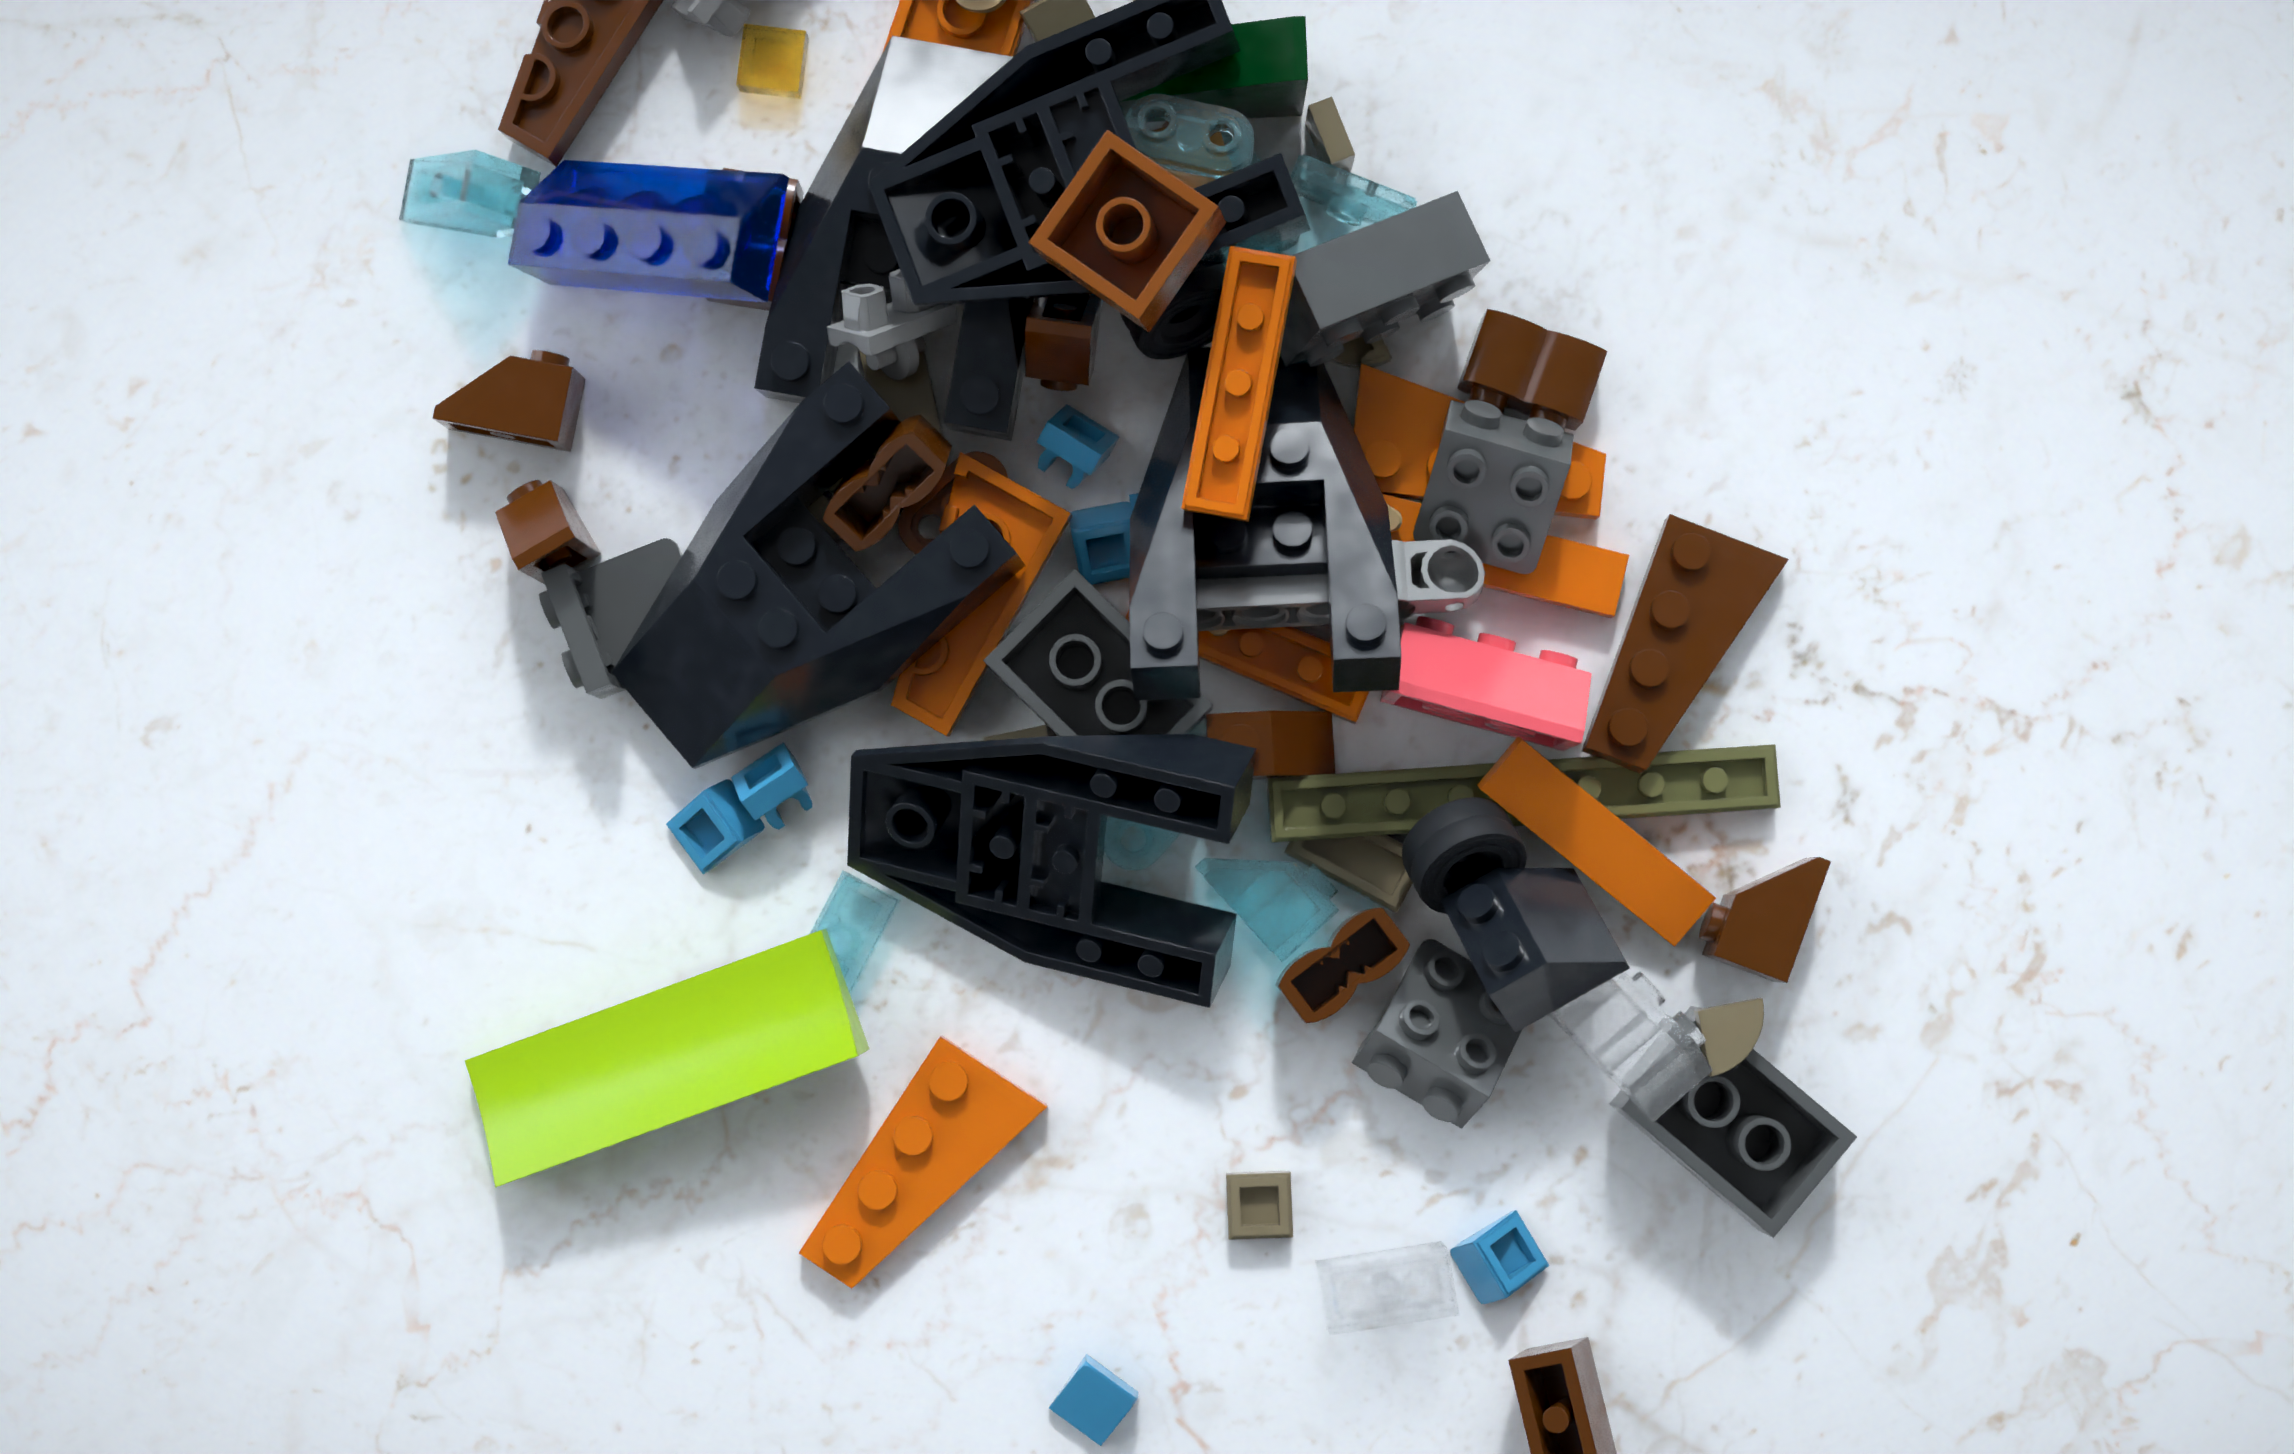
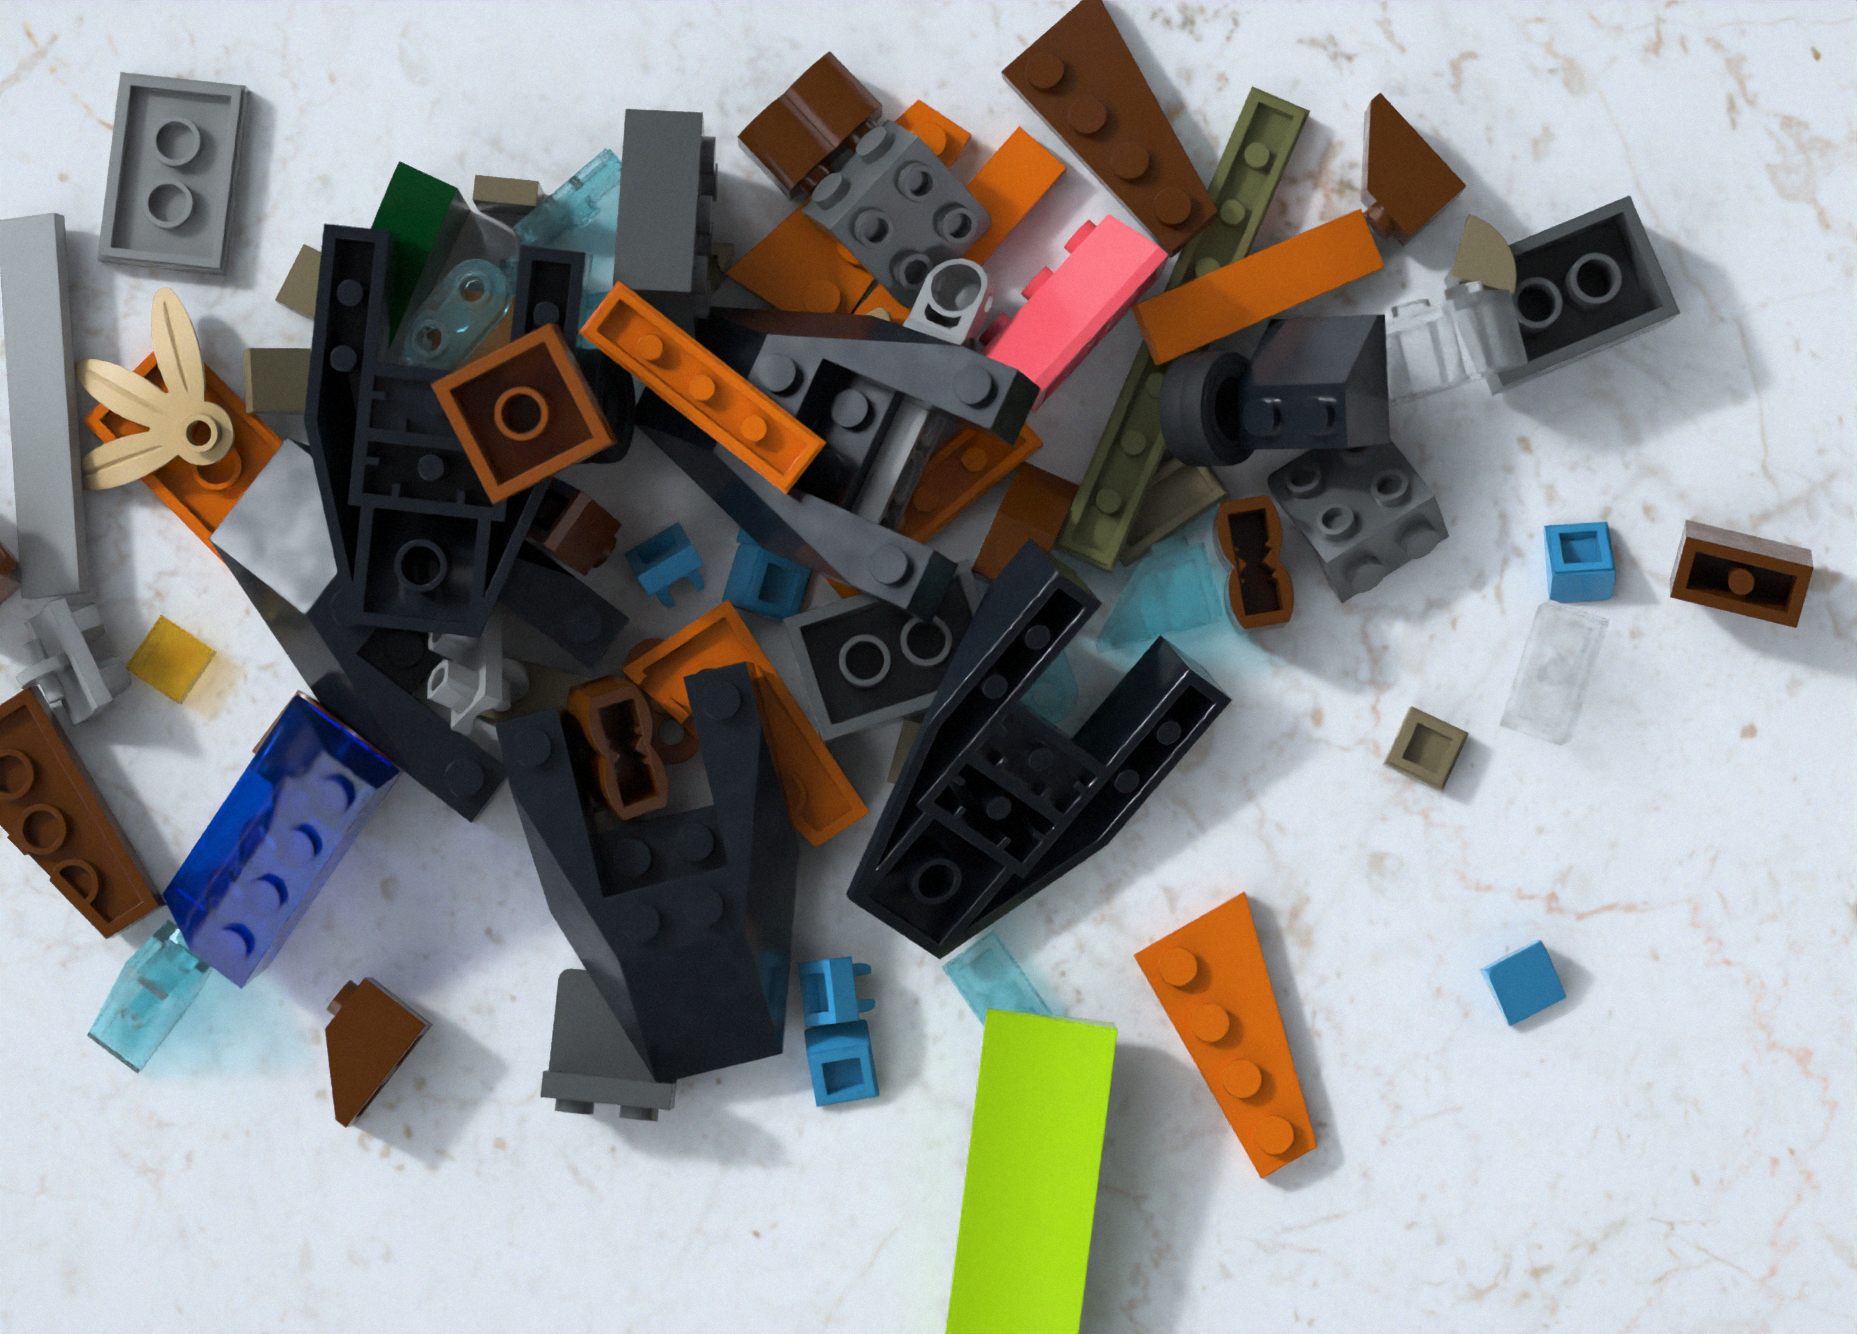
camera: 70 degrees left, 0 degrees up
(544, 529) = (496, 1079): reddish brown slope -> none

